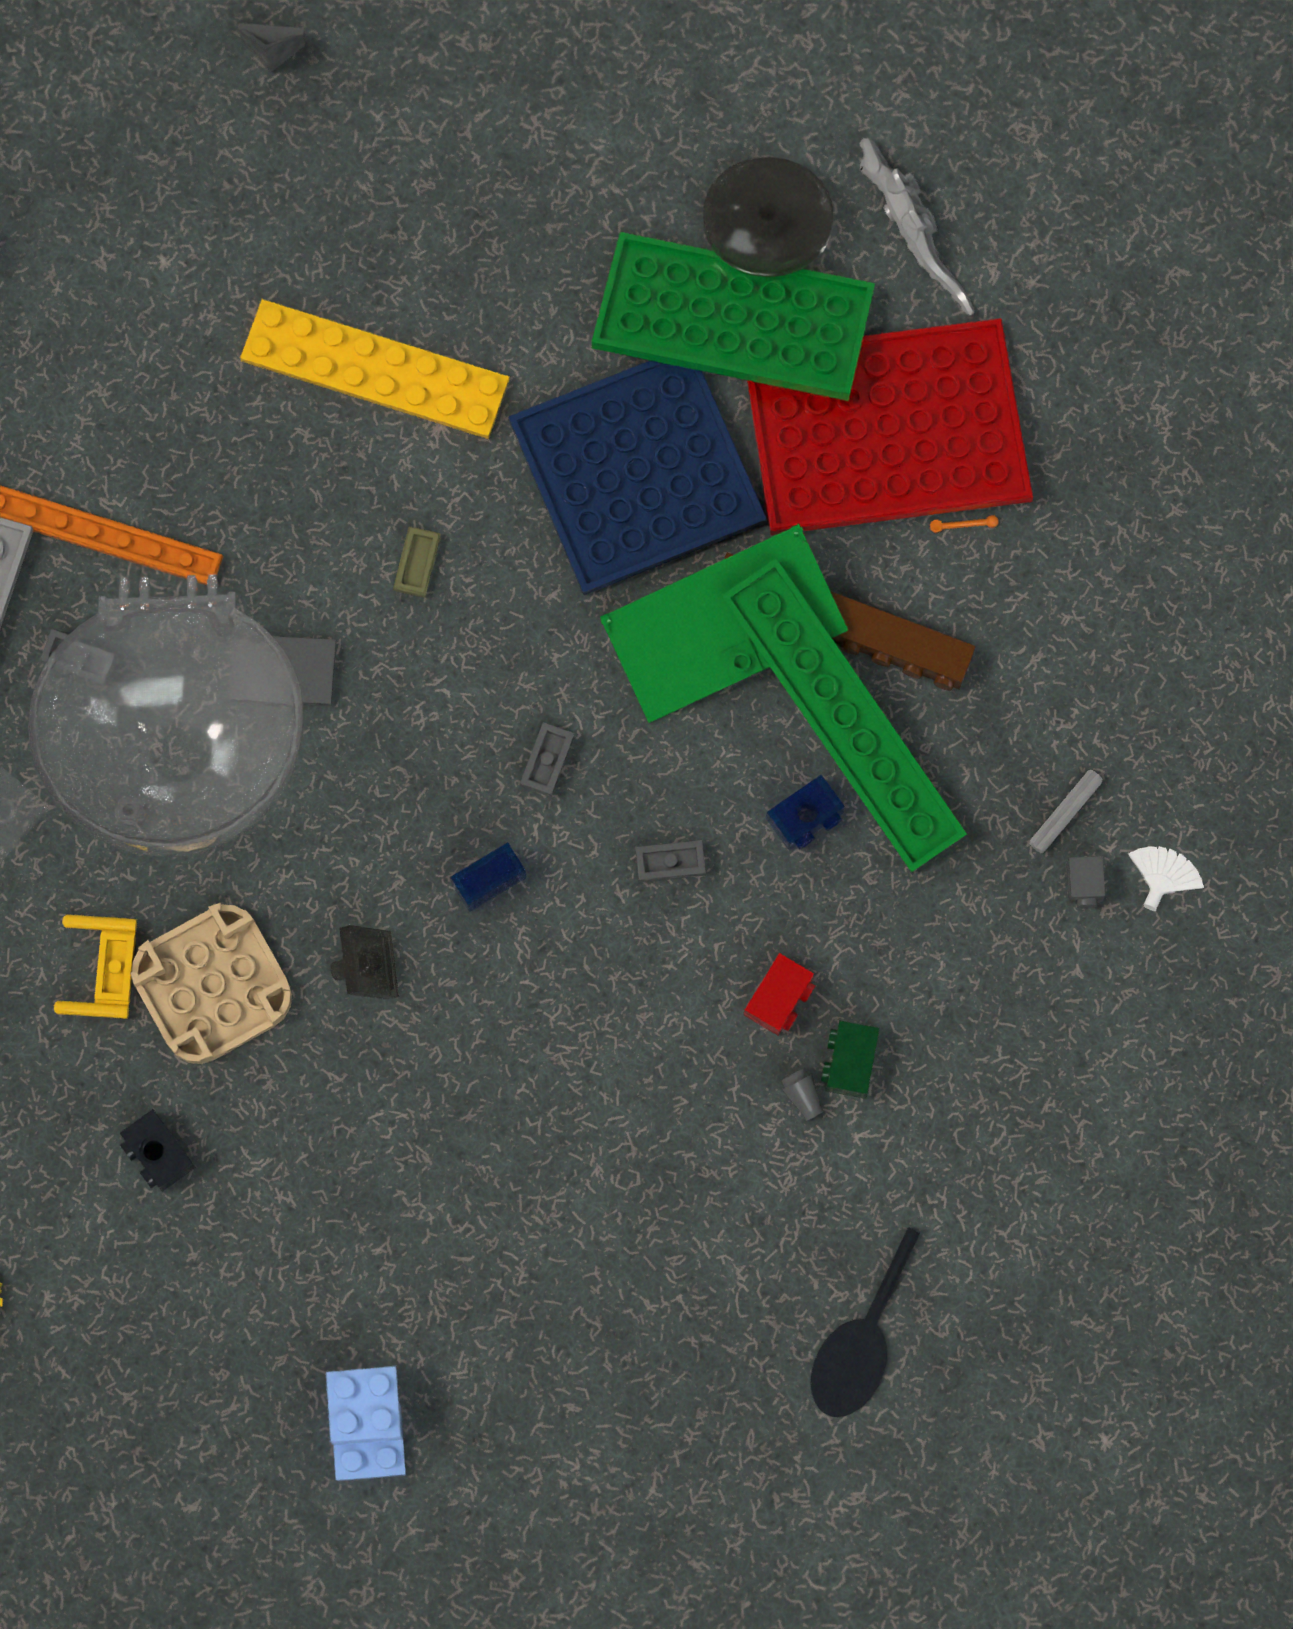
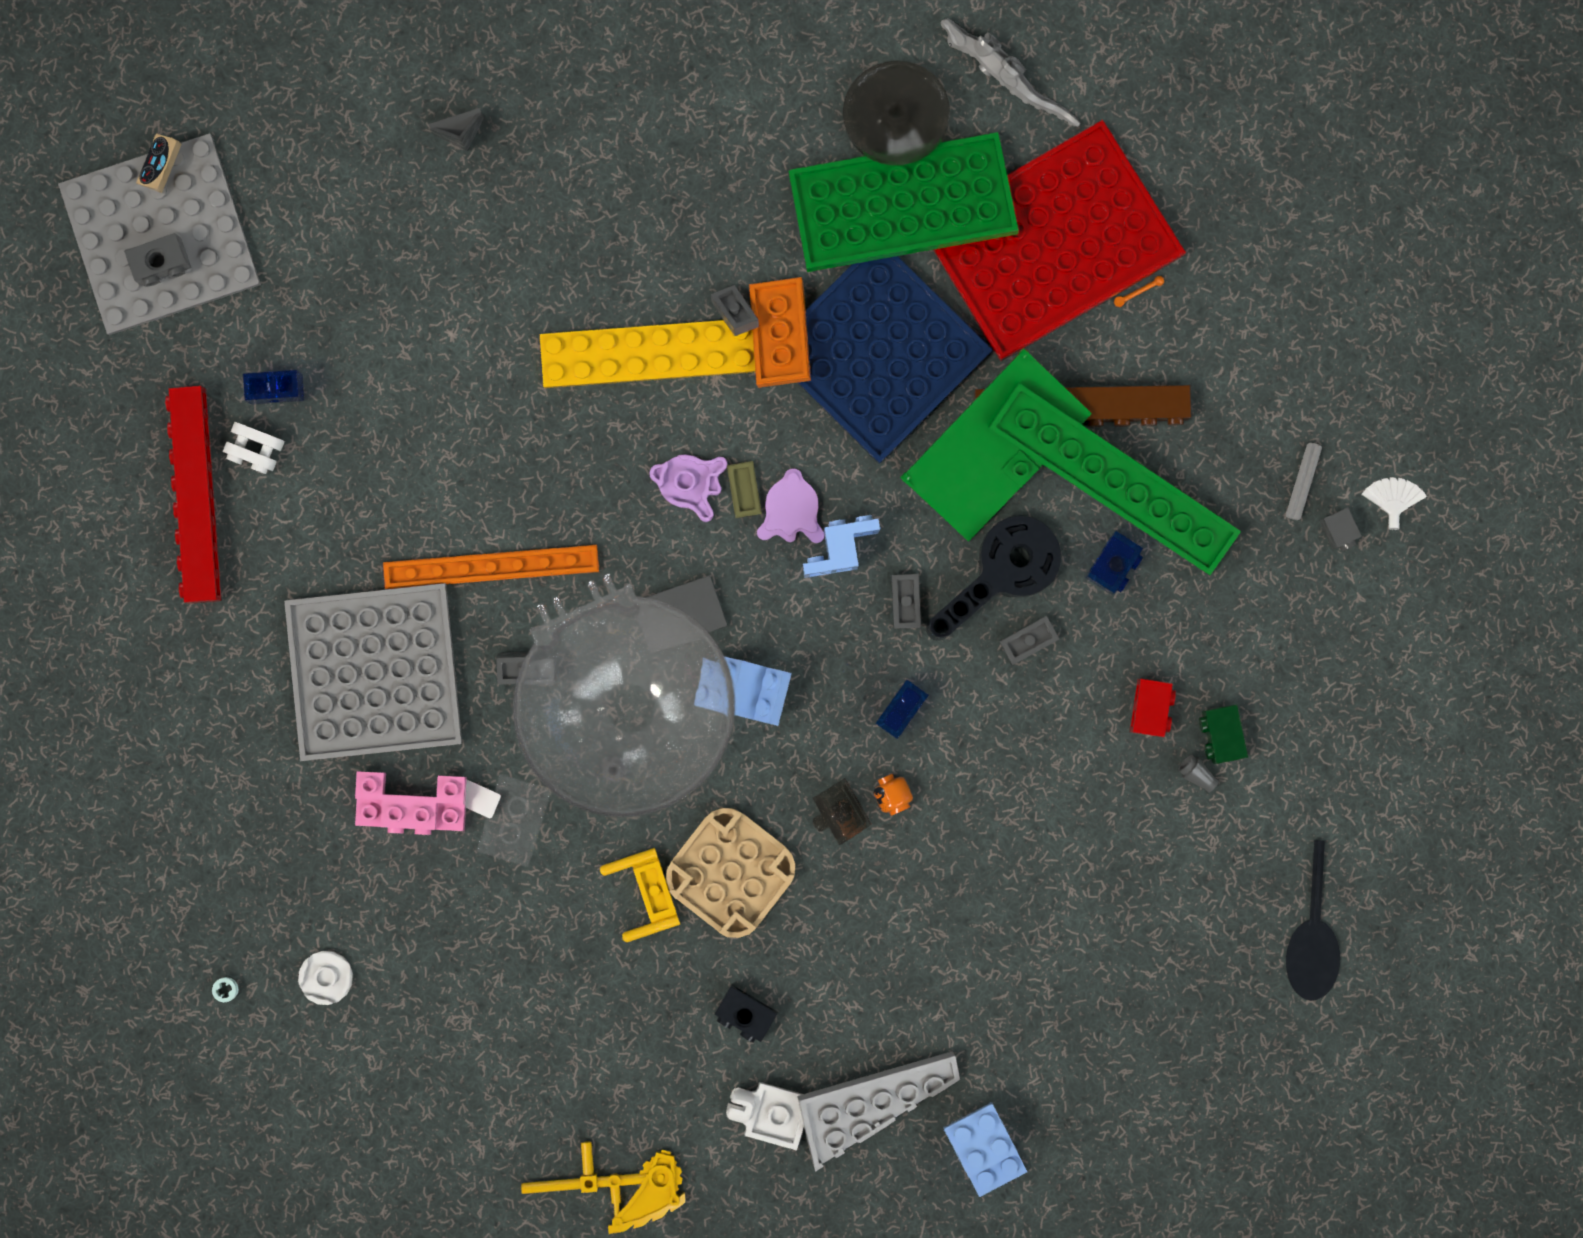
camera: 25 degrees left, 10 degrees up
(135, 1279) = (768, 1114): none -> white plate
(251, 1315) = (861, 1107): none -> light grey wing
(326, 783) = (758, 690): none -> light blue bracket
(358, 528) = (689, 481): none -> lavender tile
(437, 971) = (893, 794): none -> orange head
(460, 604) = (790, 509): none -> lavender tile
(491, 358) = (734, 310): none -> dark grey plate
(496, 664) = (841, 546): none -> light blue bracket
(532, 402) = (782, 336): none -> orange tile
(668, 770) = (1000, 574): none -> black beam

